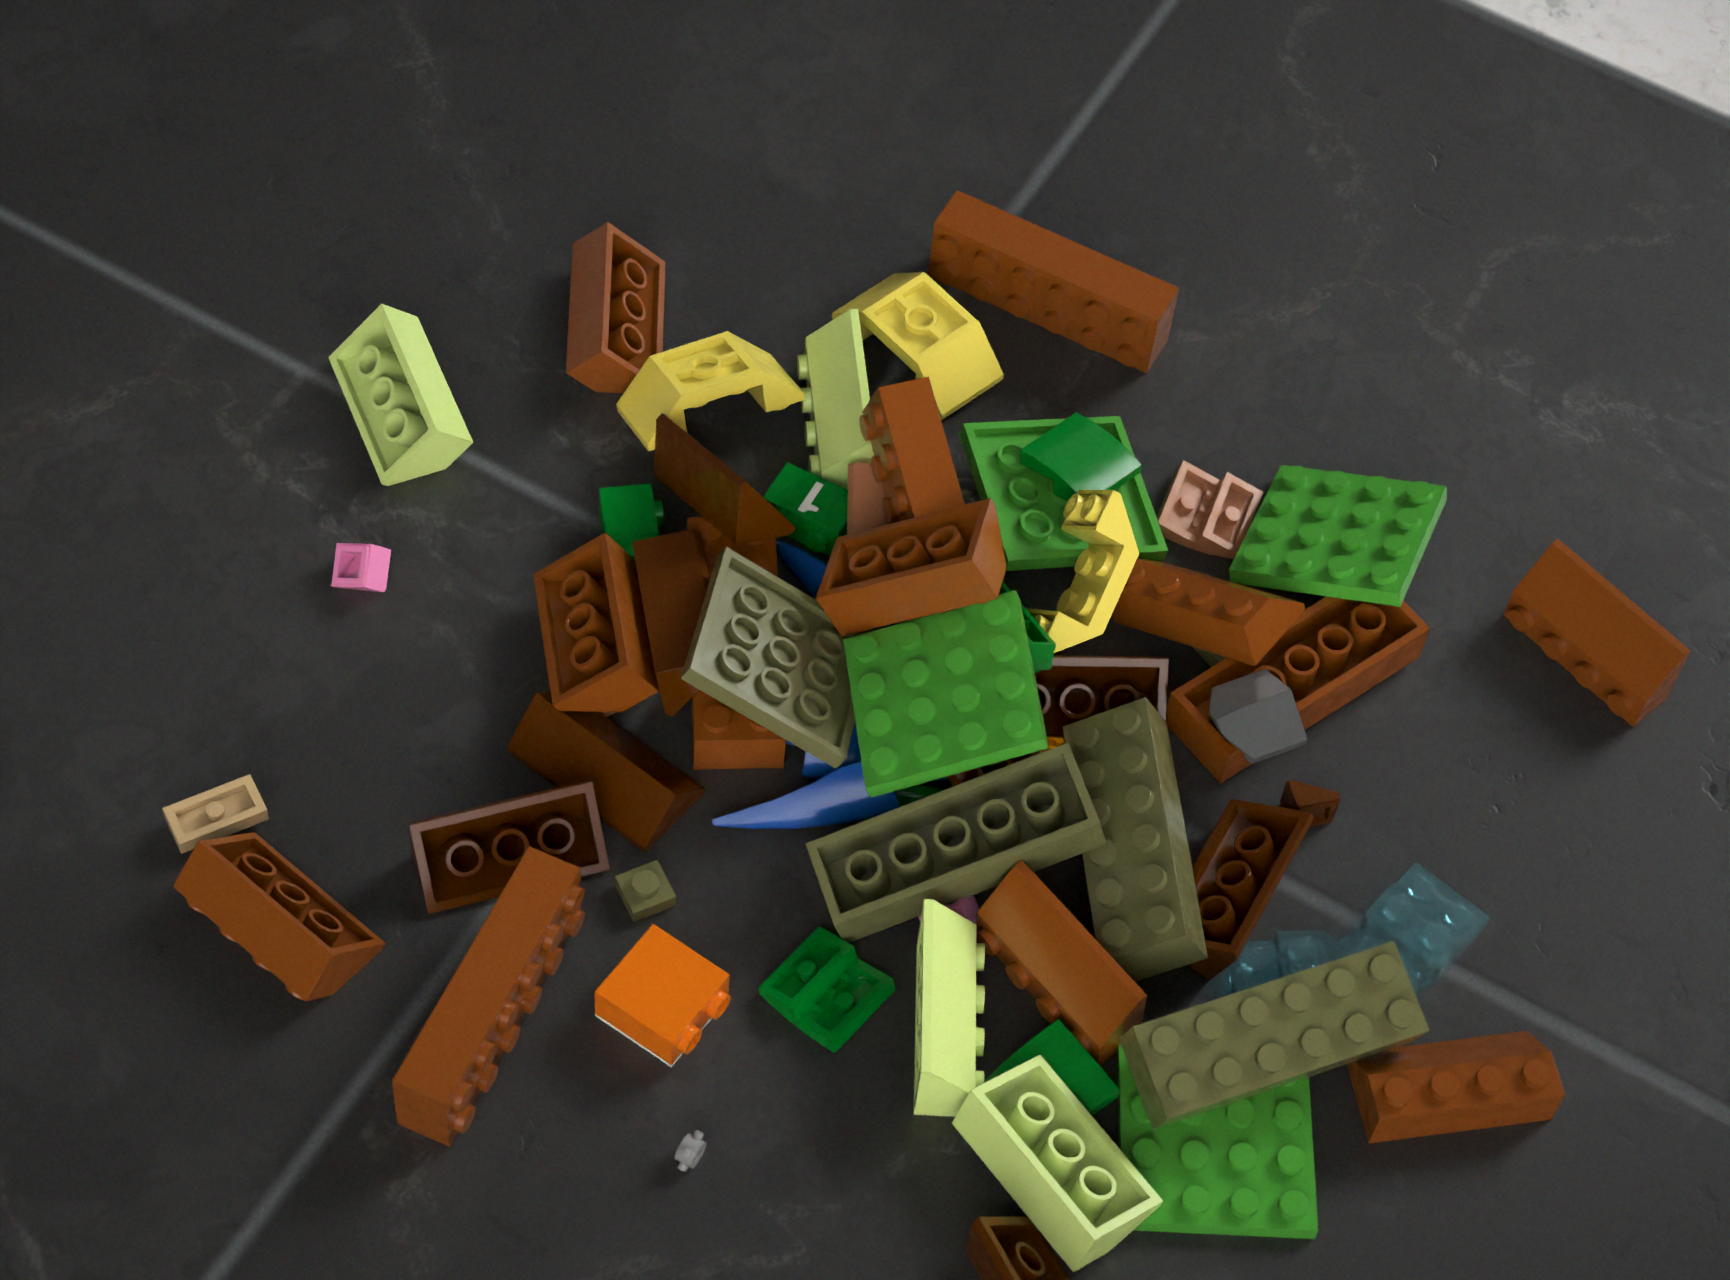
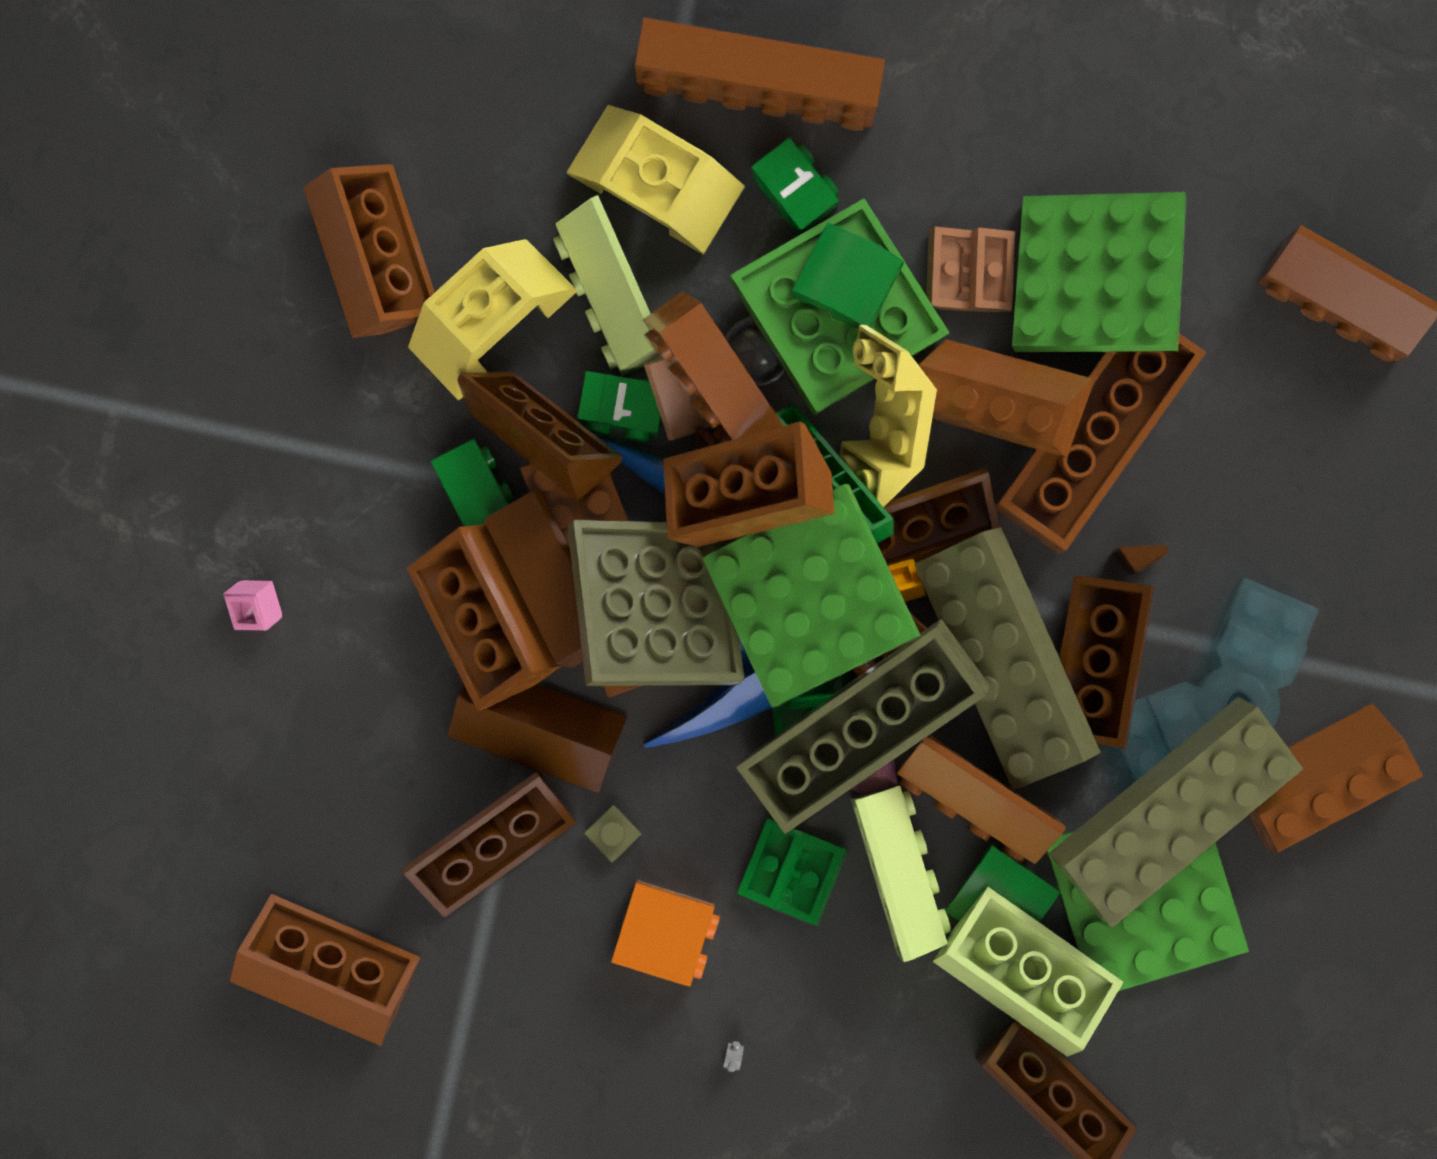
camera: 15 degrees left, 30 degrees up
(215, 813) = (233, 894): tan plate -> none
(399, 397) = (214, 414): yellowish green slope -> none
(489, 997) = (527, 996): dark orange brick -> none
(1052, 382) = (795, 186): none -> green brick
(1257, 715) = (1078, 505): dark grey slope -> none

